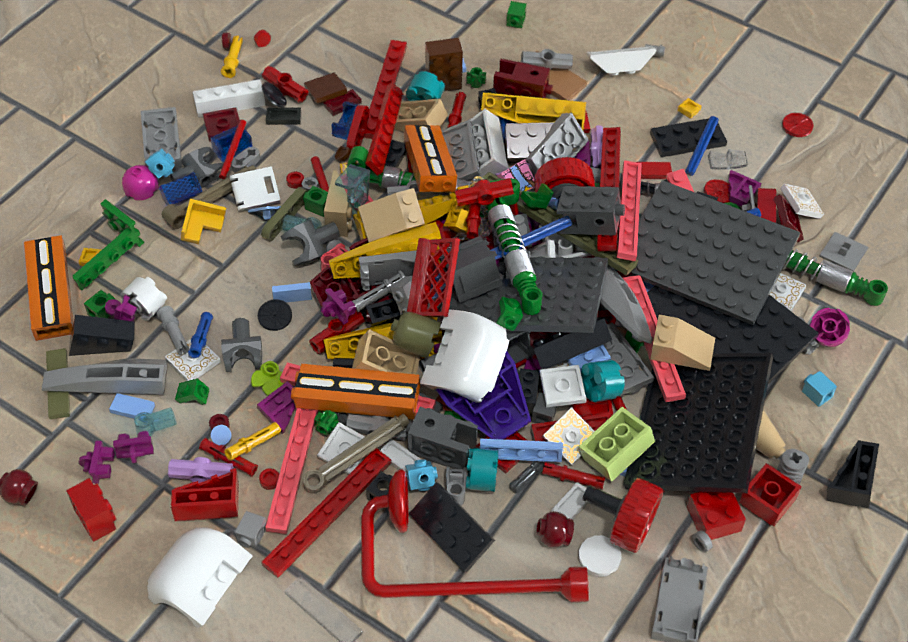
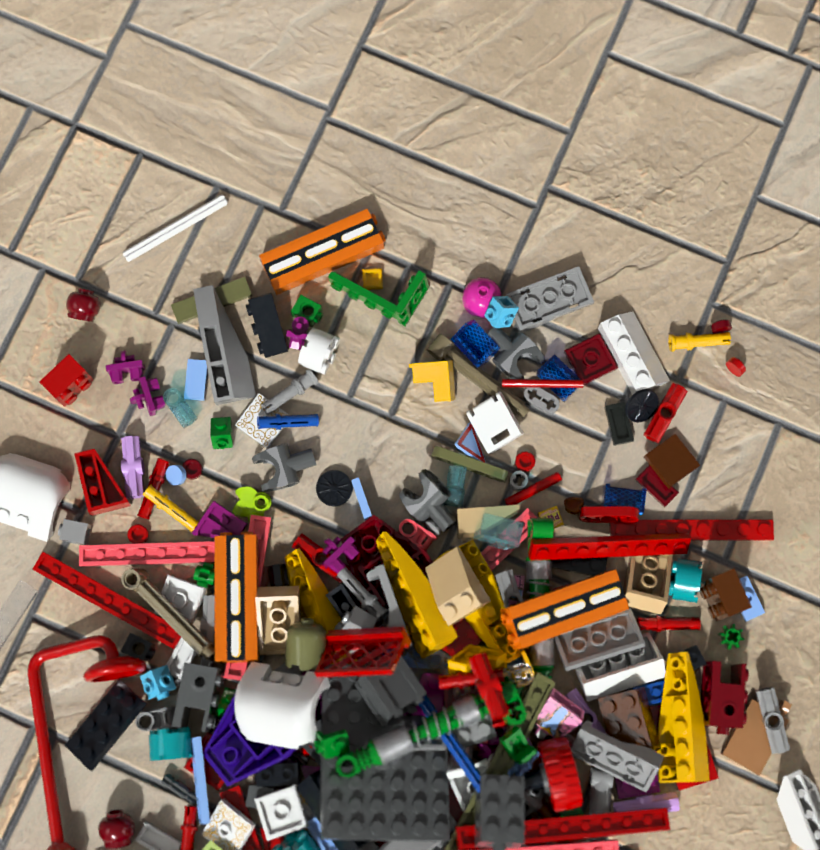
camera: 80 degrees right, 25 degrees up
(315, 200) = (498, 484): green brick -> none

